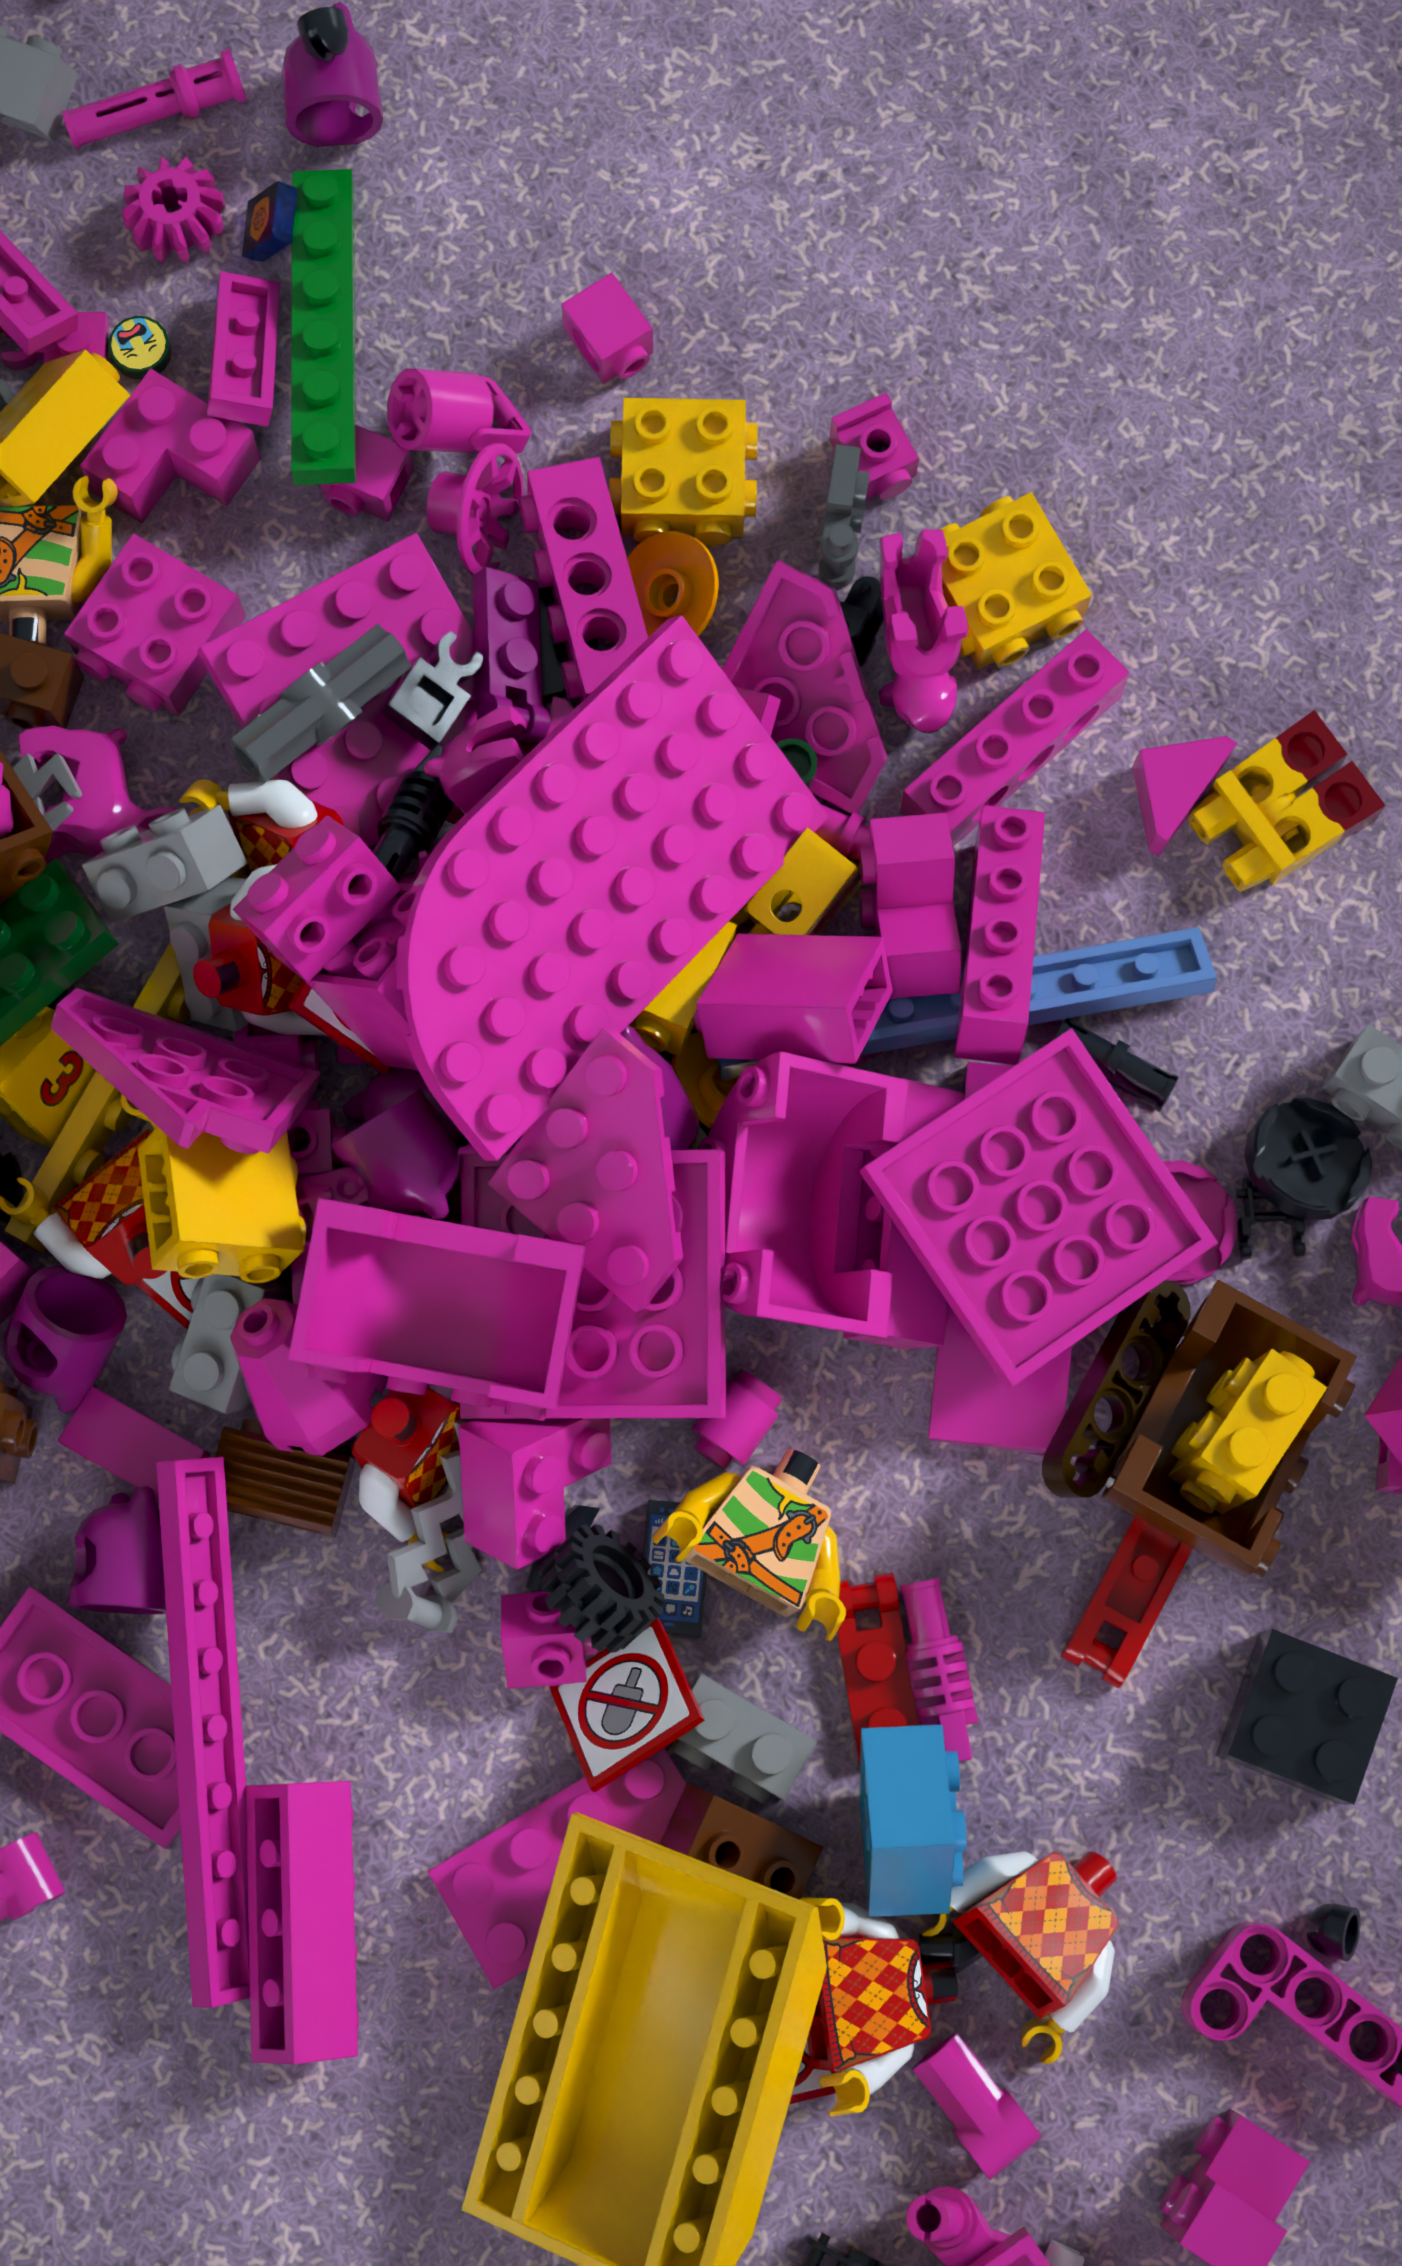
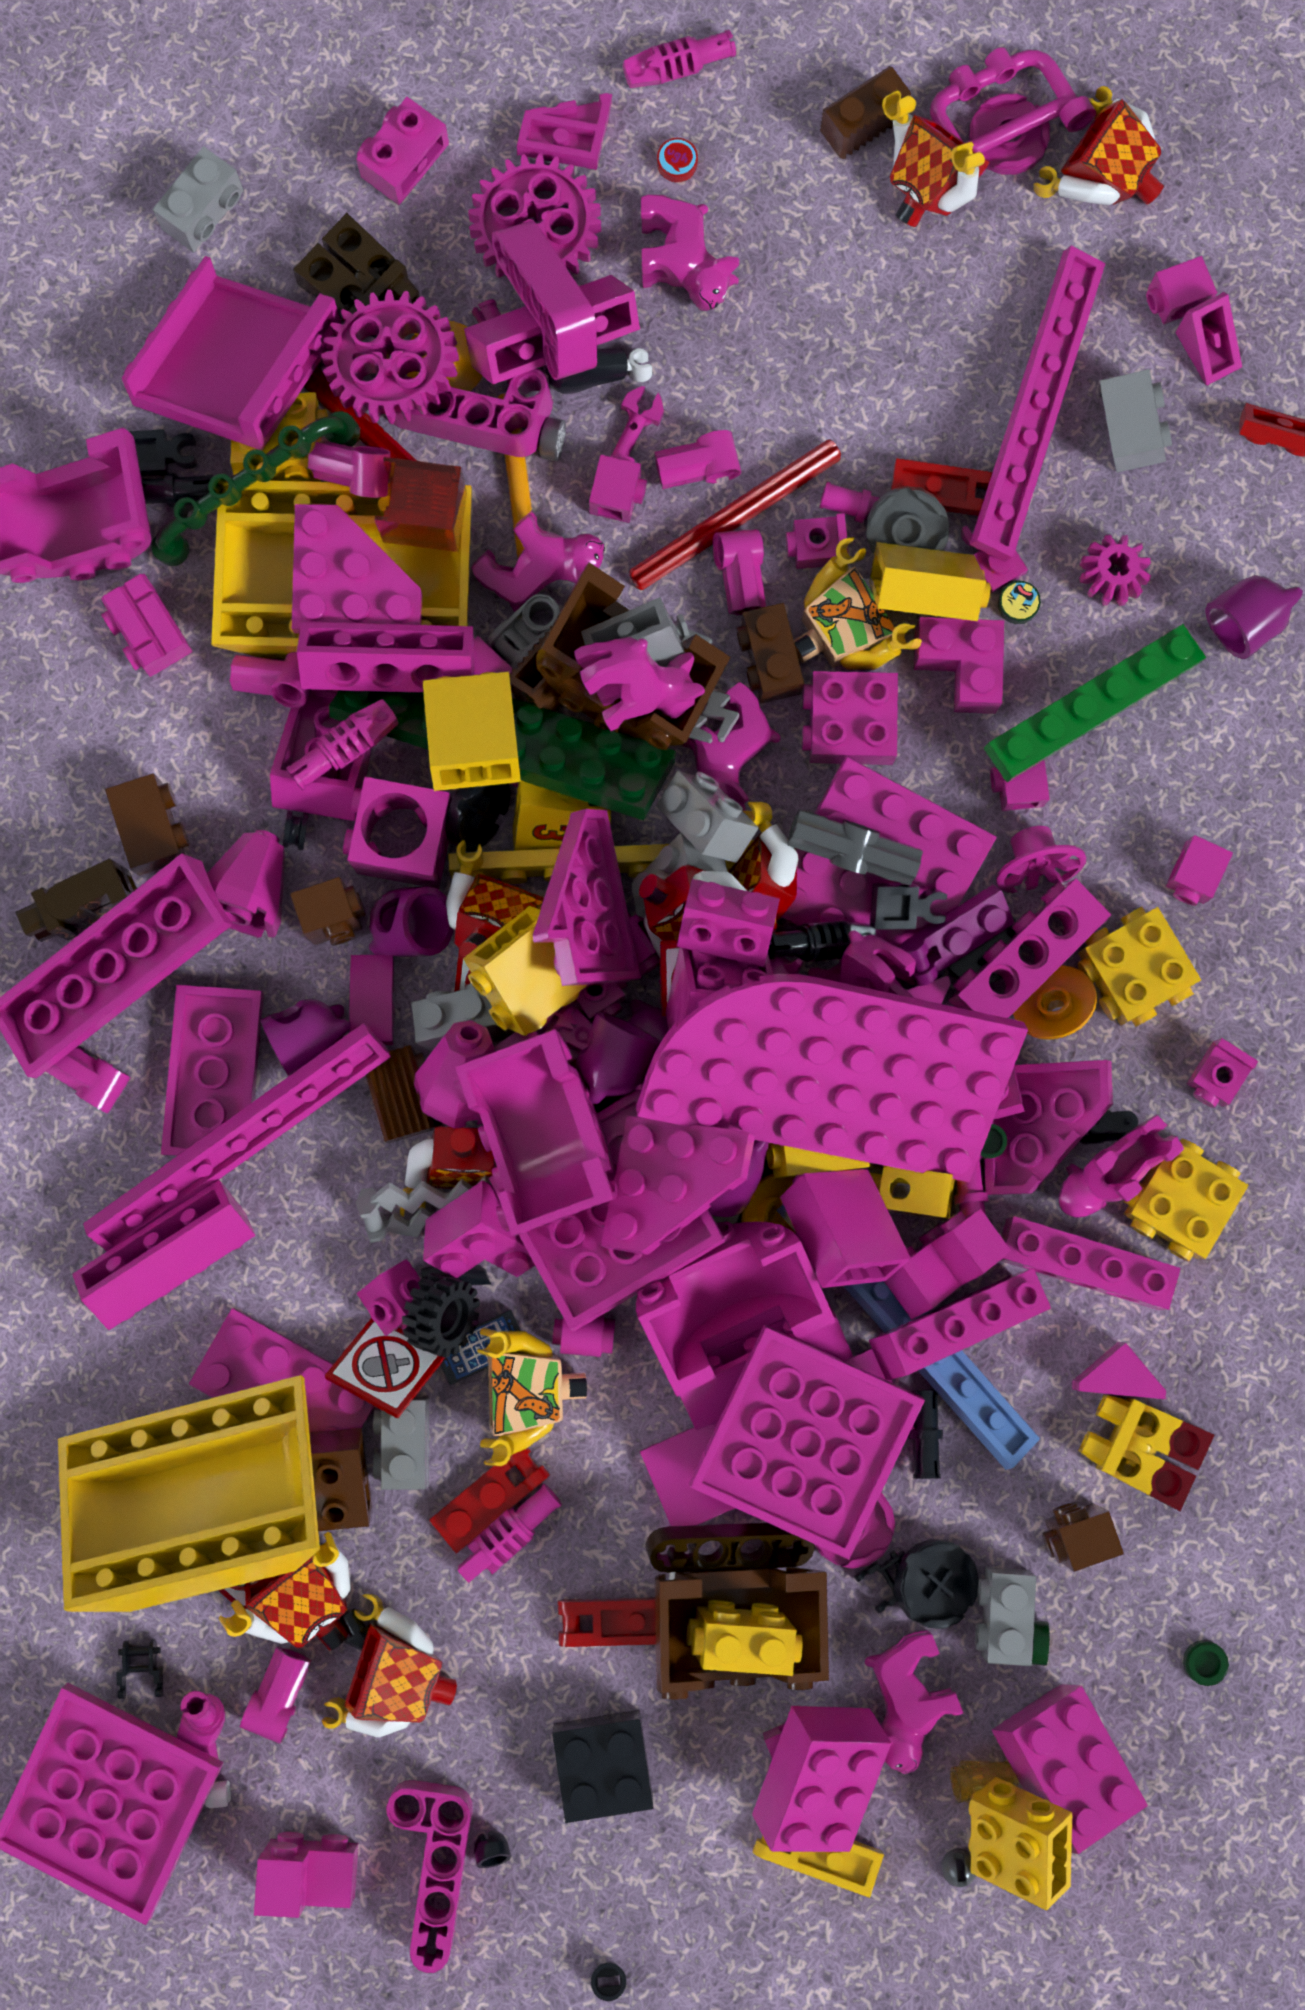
camera: 60 degrees right, 5 degrees up
(183, 92) = (1193, 529): dark pink pin -> none
(244, 349) = (1051, 665): dark pink plate -> none
(269, 221) = (1142, 630): tile -> none
(324, 32) = (1272, 595): black hinge -> none
(452, 412) = (1087, 812): dark pink piece -> none
(843, 518) = (1168, 1079): dark grey plate -> none
(910, 1820) = (409, 1569): dark azure brick -> none
(1349, 941) = (1081, 1536): none -> reddish brown brick

